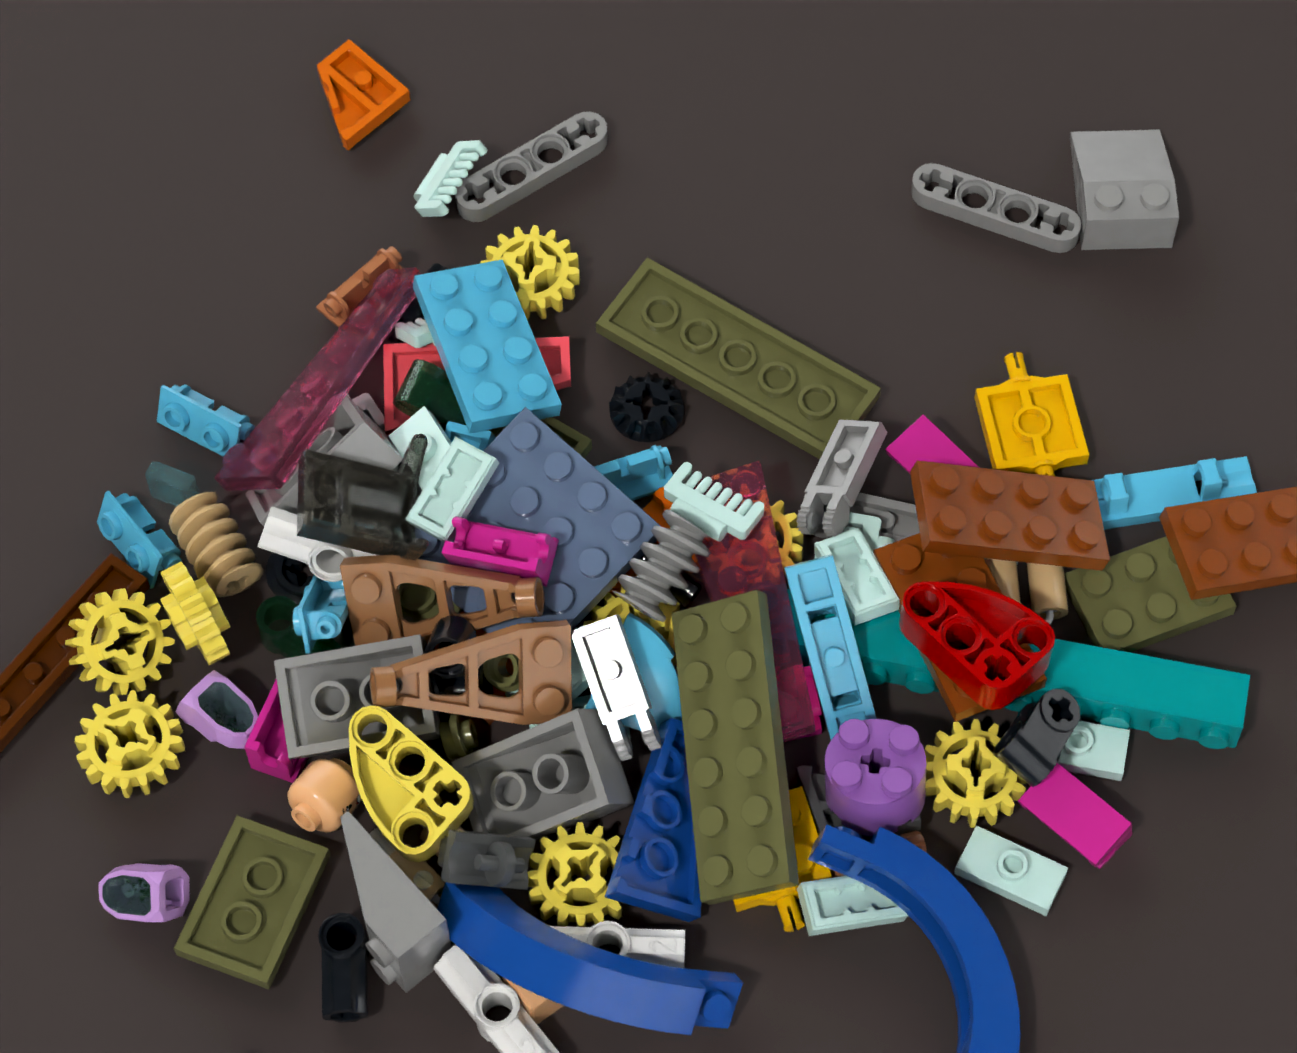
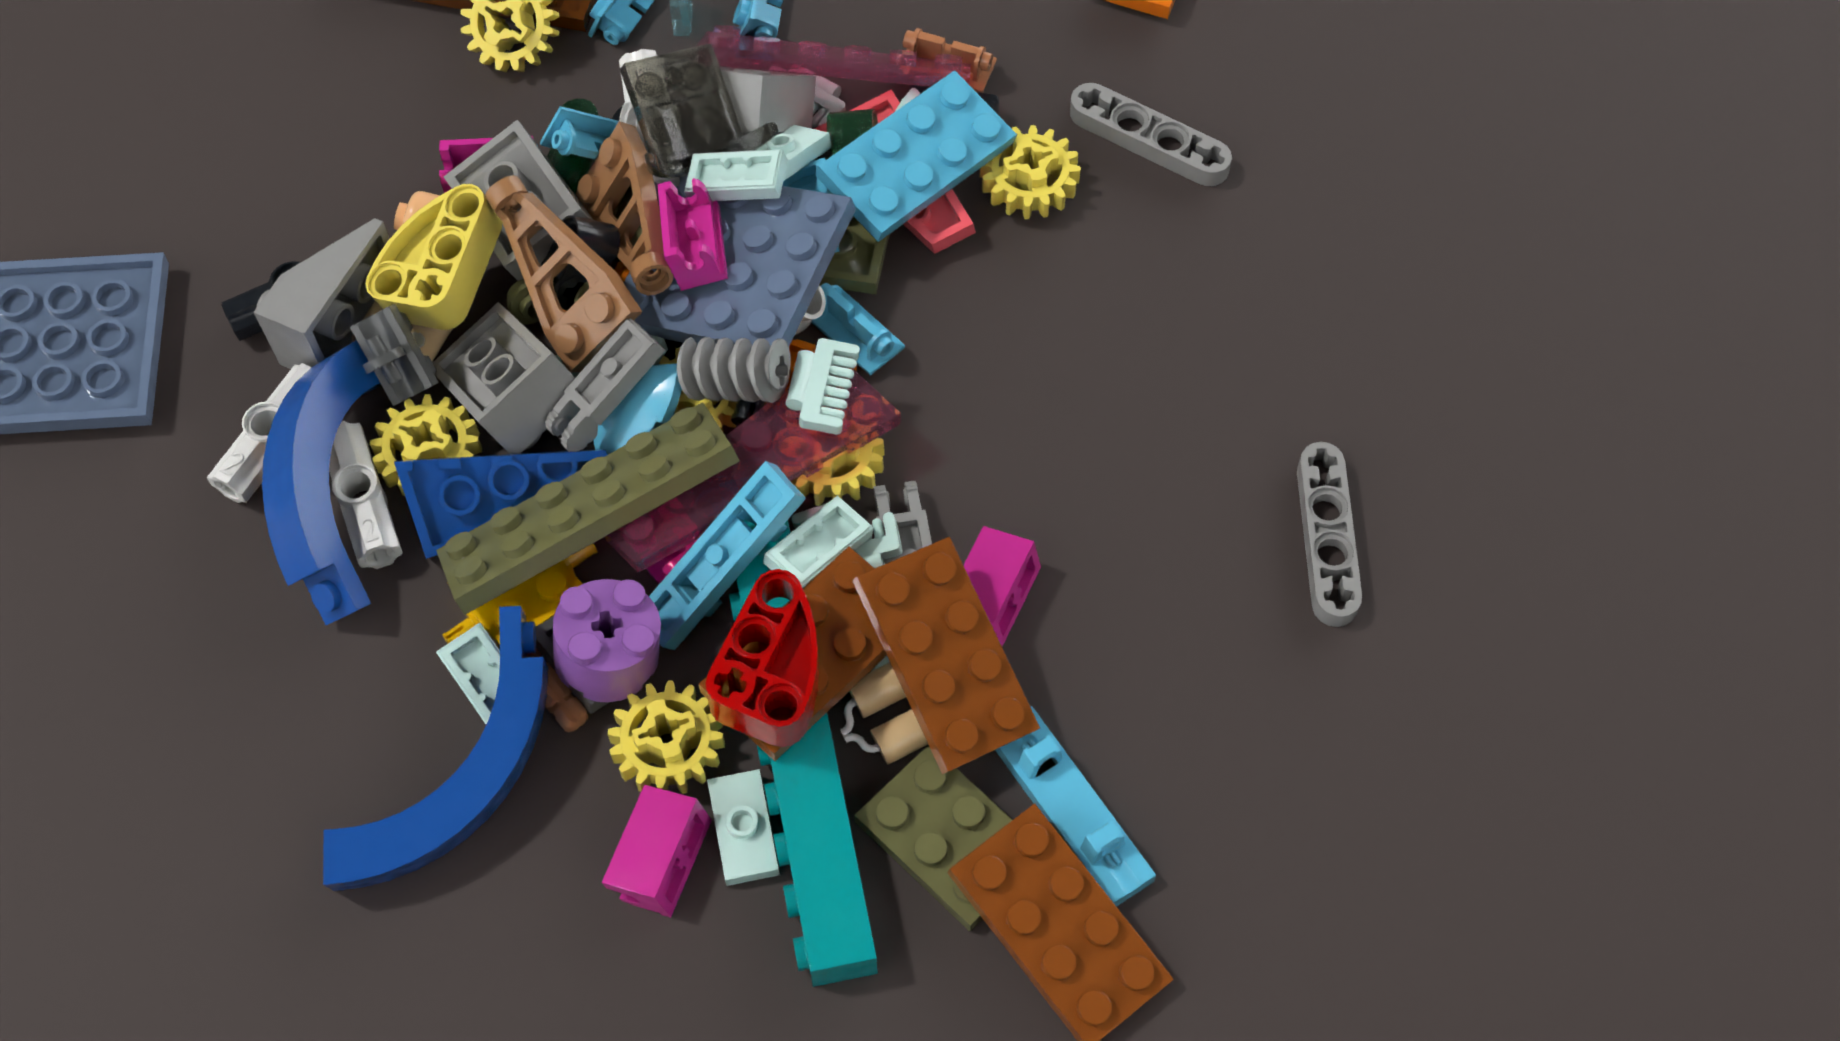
camera: 65 degrees right, 0 degrees up
(136, 762) = (425, 72): light yellow gear -> none
(145, 892) = (292, 139): lavender rock -> none
(195, 613) = (552, 57): light yellow gear -> none
(214, 545) = (647, 29): tan piece -> none
(219, 711) = (478, 111): rock -> none
(252, 902) = (307, 211): olive plate -> none
(445, 177) = (1095, 70): light aqua piece -> none
(662, 419) = (929, 333): black gear -> none
(735, 358) = (1026, 376): olive plate -> none
(840, 476) = (924, 493): light grey hinge -> none
(1011, 870) = (580, 814): light aqua plate -> none
(1031, 422) = (1087, 653): yellow plate -> none
(1039, 735) = (698, 768): black piece -> none
(1124, 189) = (1419, 640): light grey slope -> none

